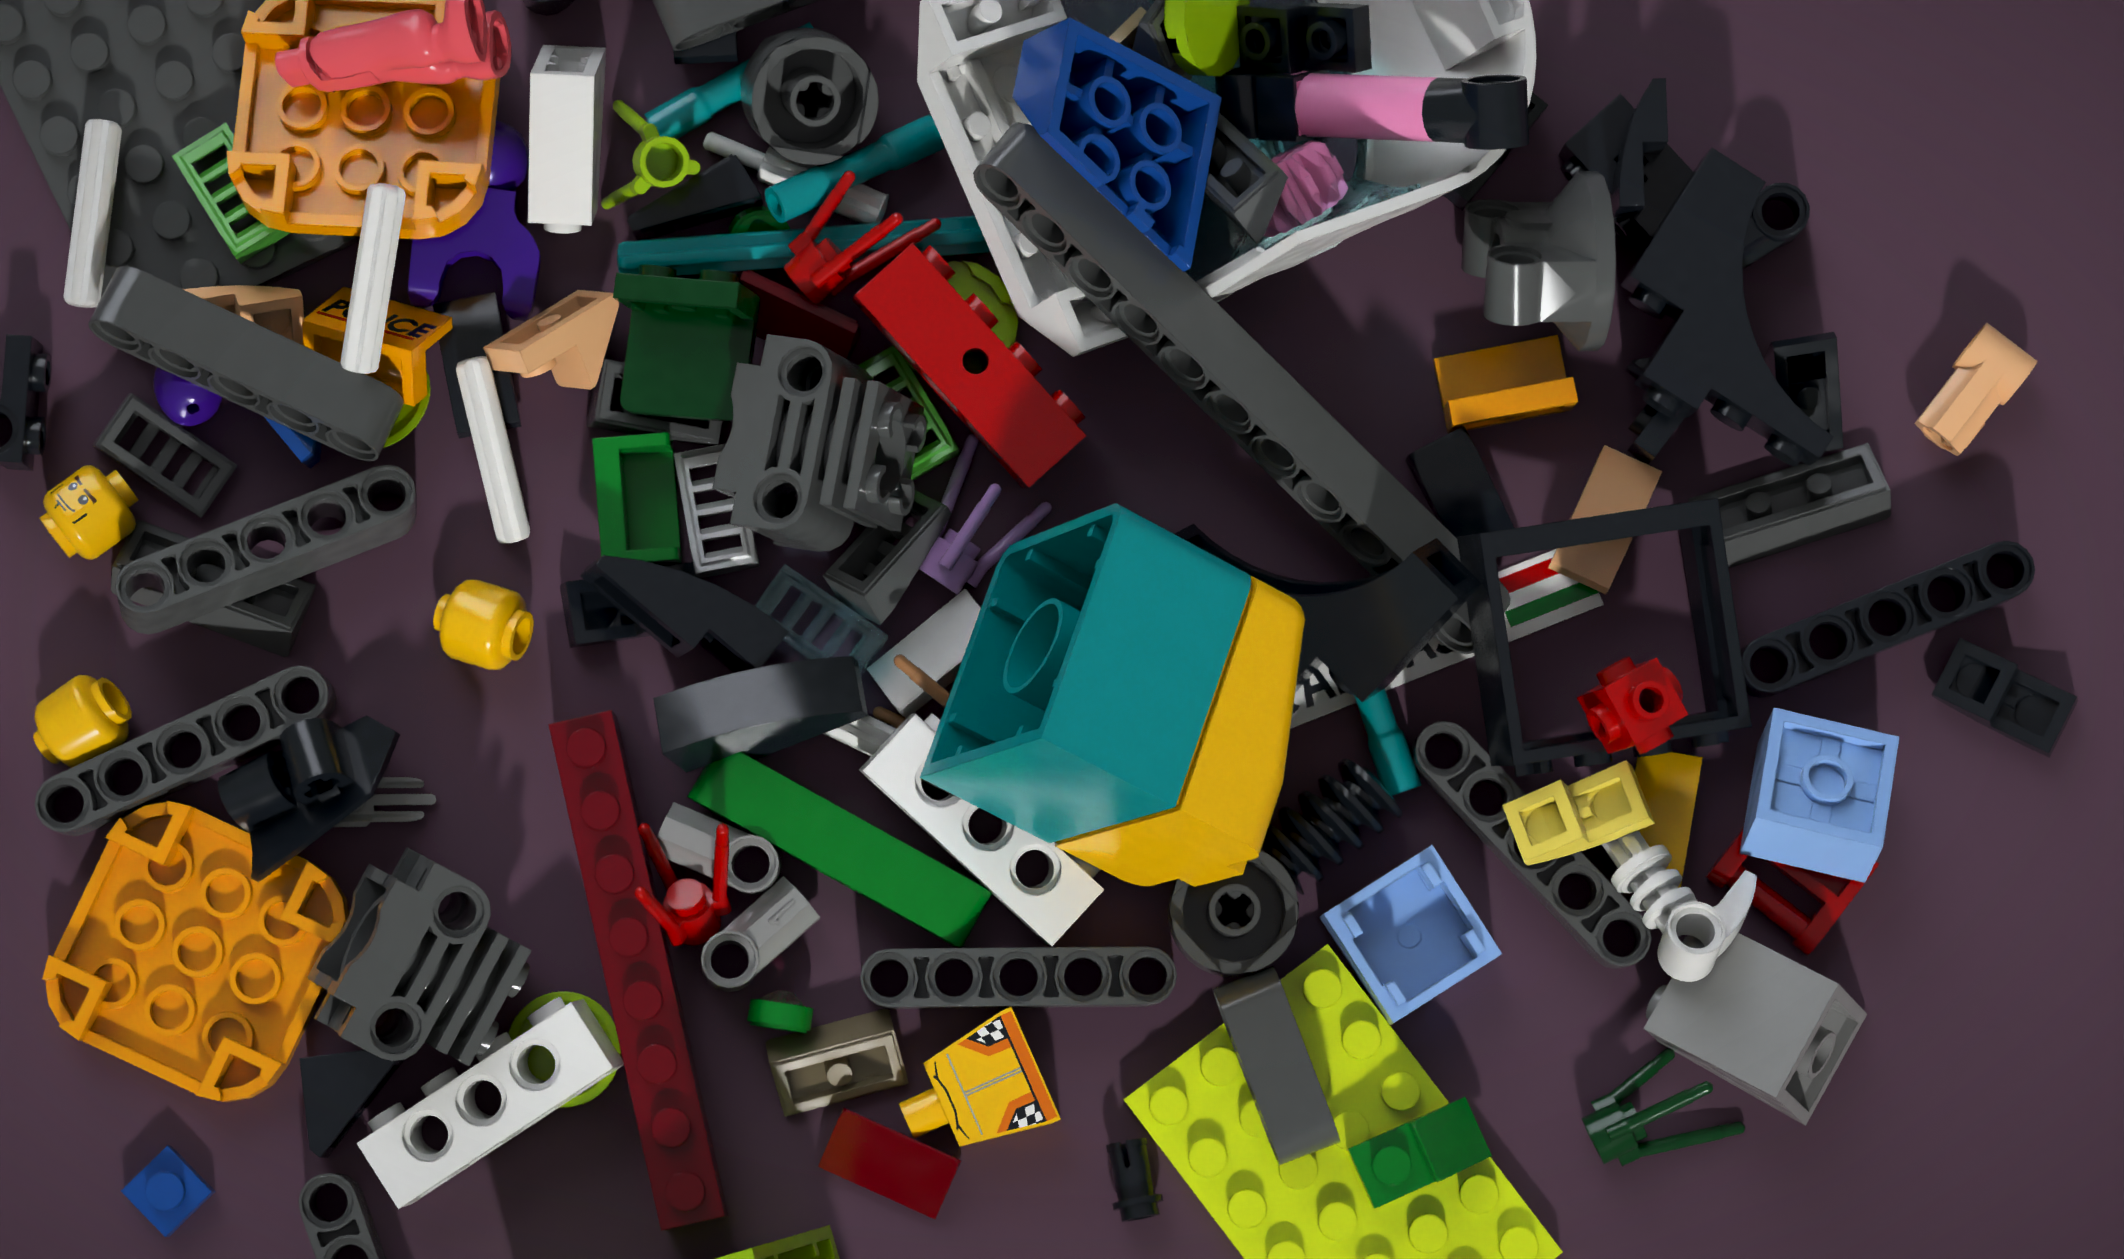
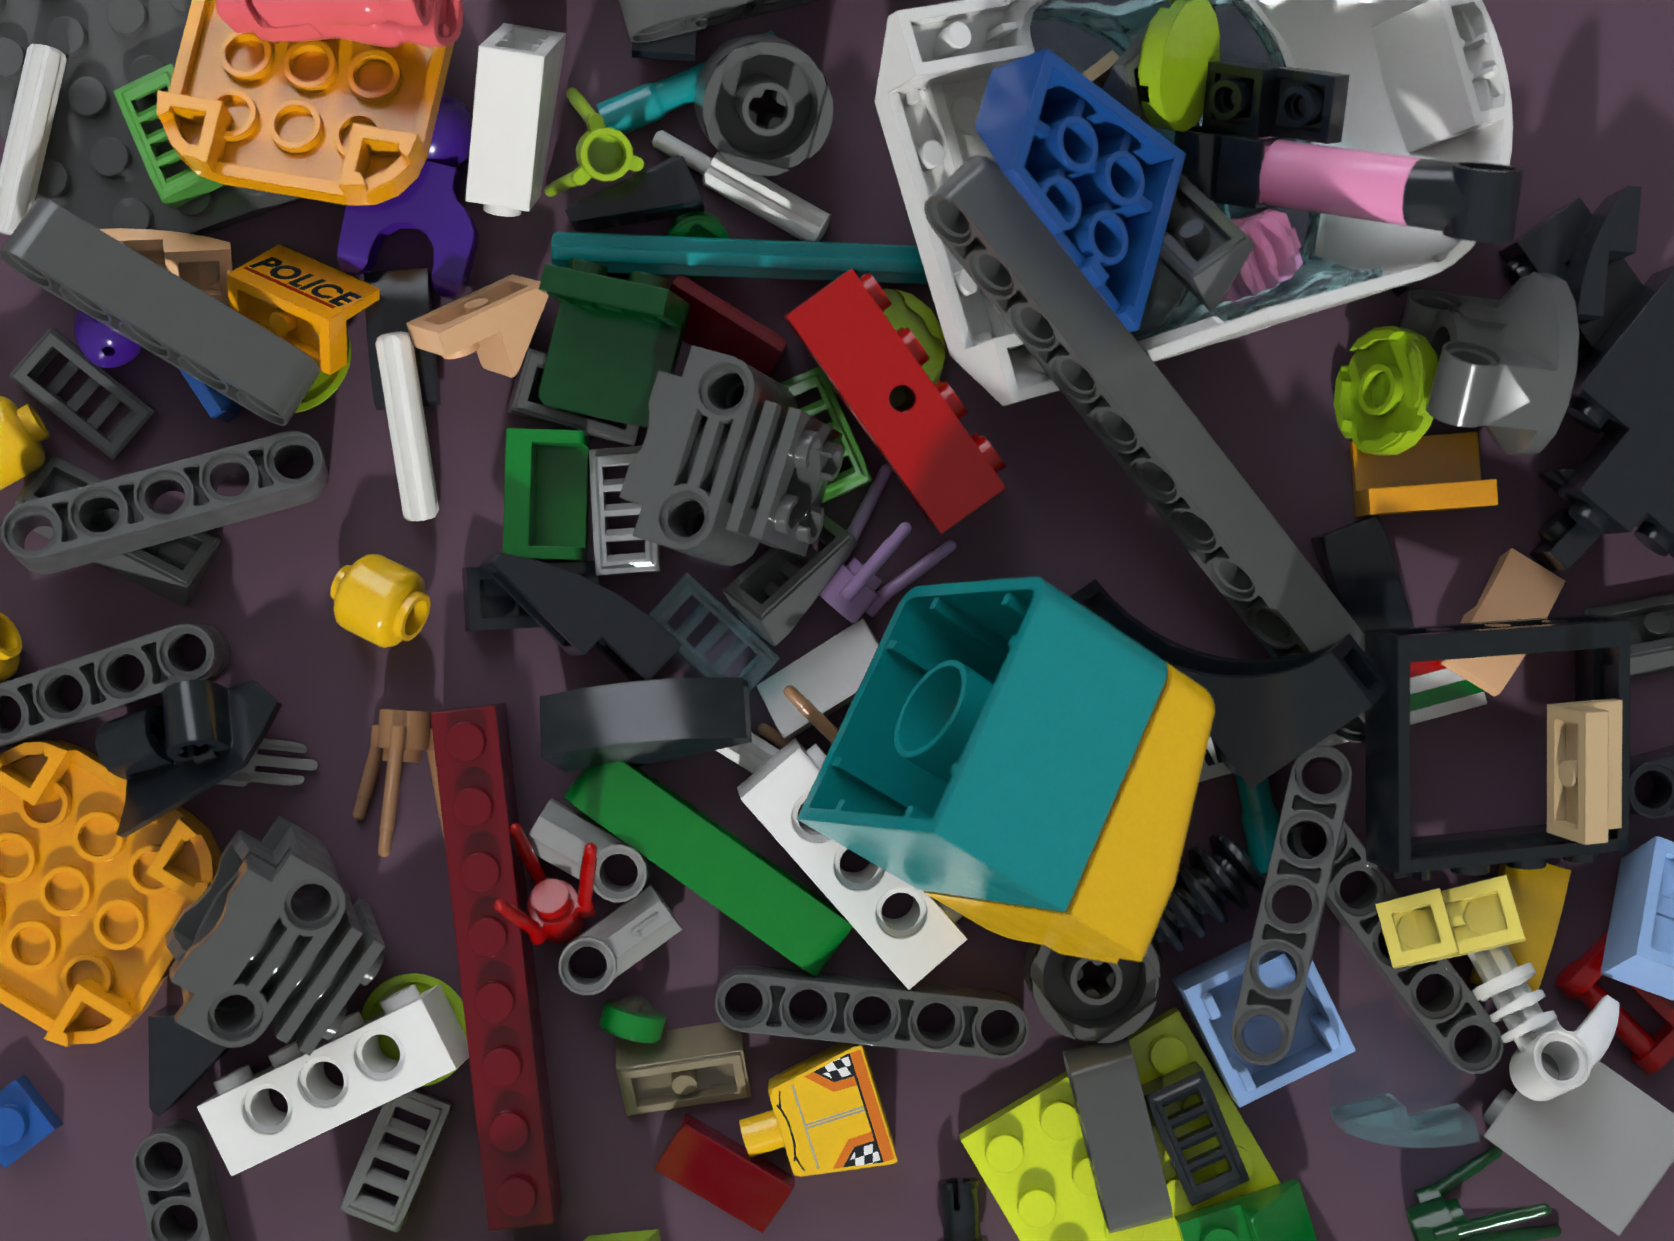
camera: 15 degrees right, 5 degrees up
(373, 278) = (295, 239): white axle -> none
(520, 758) = (397, 739): none -> medium nougat plant
(546, 1233) = (374, 1207): none -> light grey slope
(827, 270) = (757, 280): red plant -> none
(888, 153) = (766, 195): teal piece -> none
(1325, 1014) = (1174, 1087): none -> black slope
(1409, 781) = (1292, 872): none -> dark grey beam
(1450, 304) = (1386, 390): none -> lime tile
(1552, 1031) = (1386, 1122): none -> clear light blue slope
(1633, 705) = (1529, 828): red brick -> none
(1694, 641) = (1584, 769): none -> tan panel

